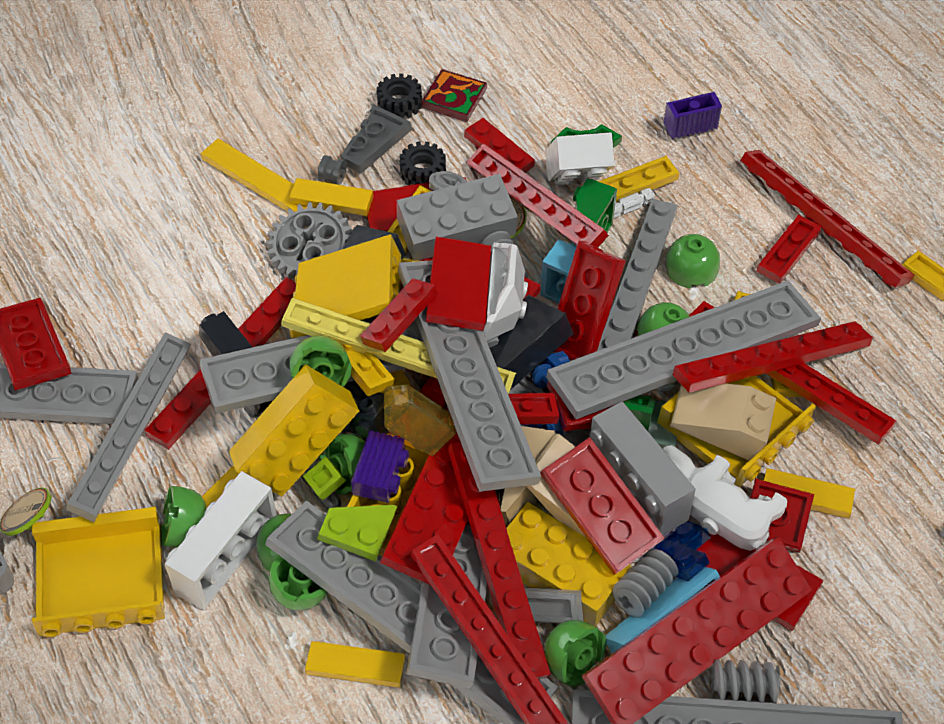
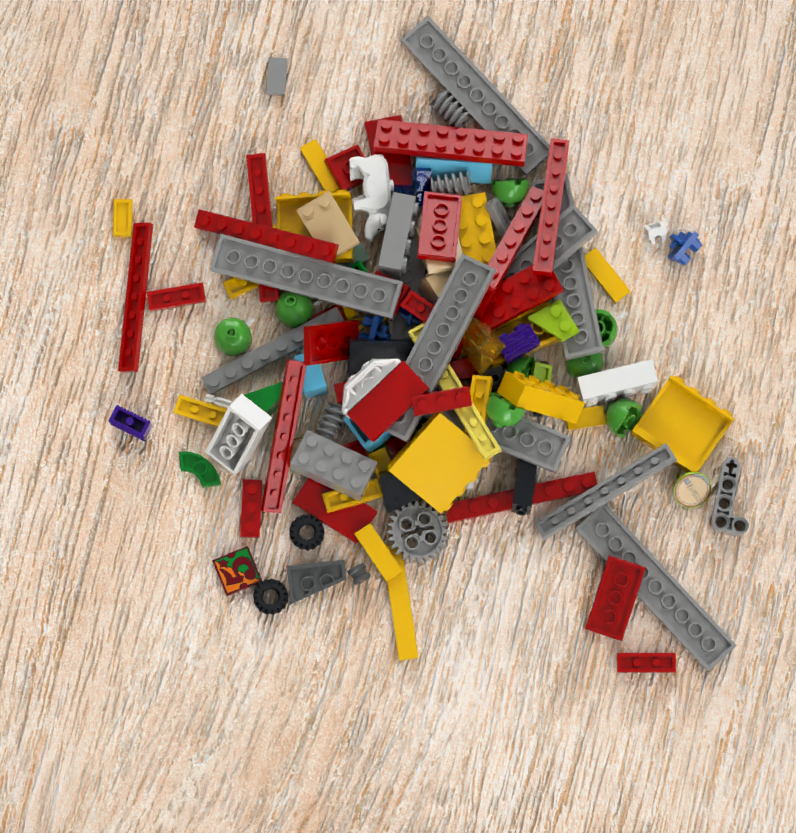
camera: 135 degrees left, 25 degrees up
(445, 179) = (306, 490): light grey gear -> none

